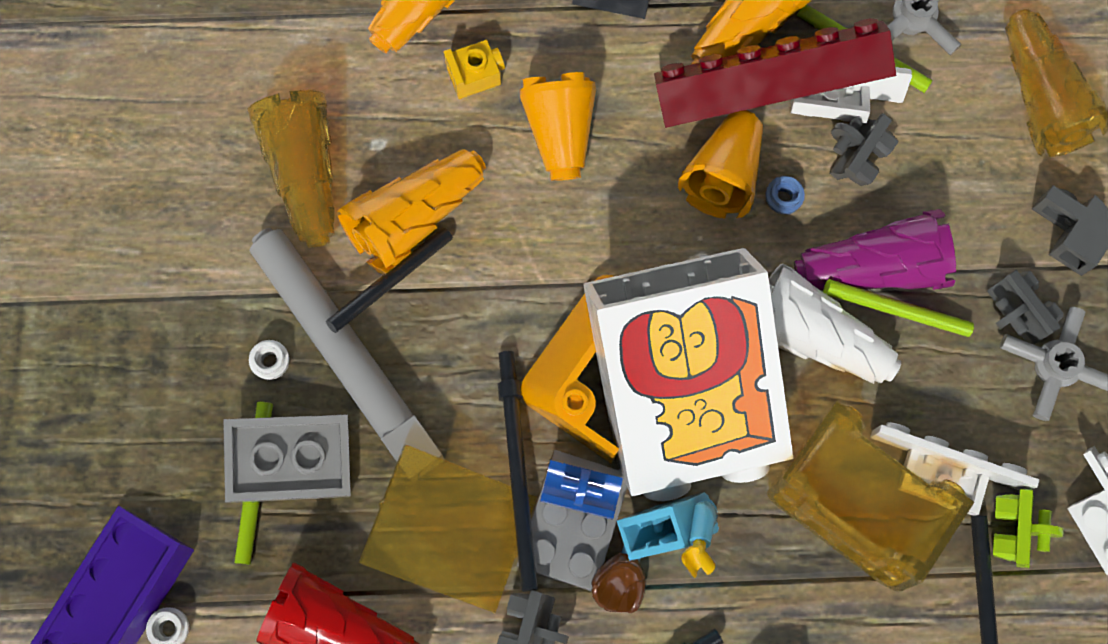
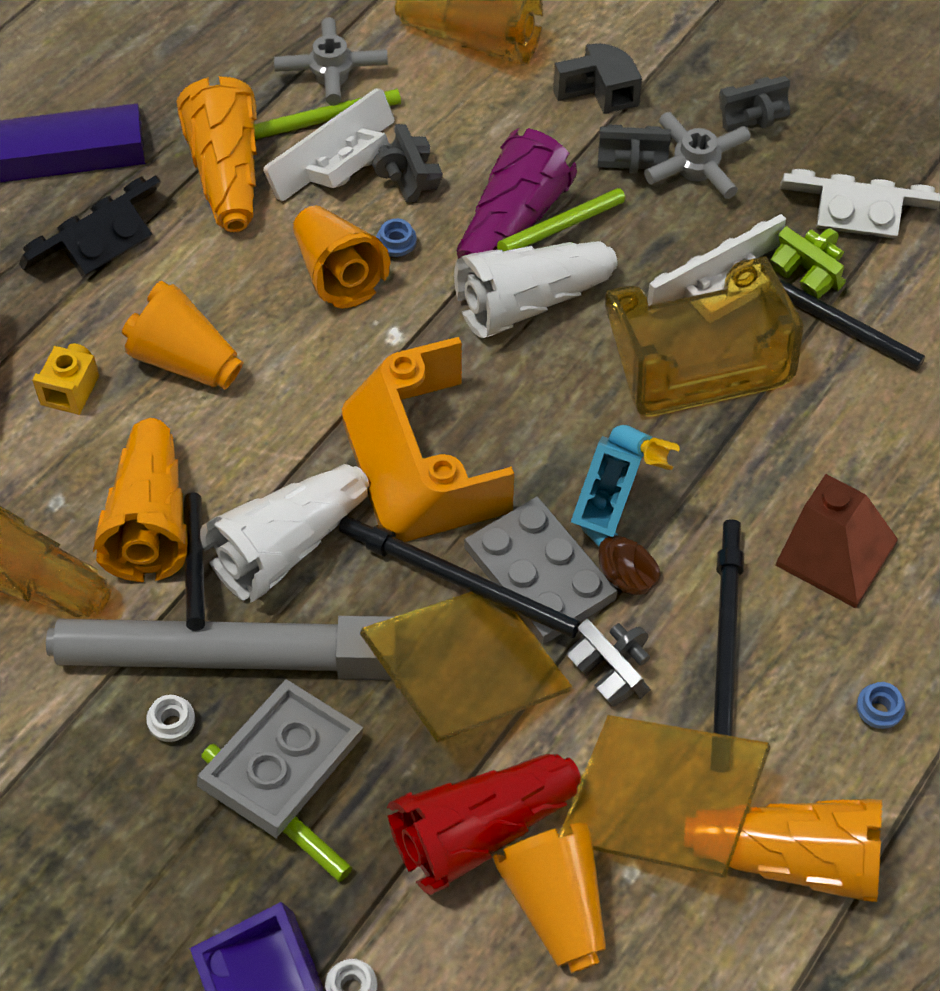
camera: 50 degrees left, 20 degrees down
(461, 319) = (274, 533): none -> white cone
(581, 489) = (521, 523): blue hips -> none
(690, 372) = (494, 366): brick -> none
(776, 72) = (291, 168): dark red brick -> none

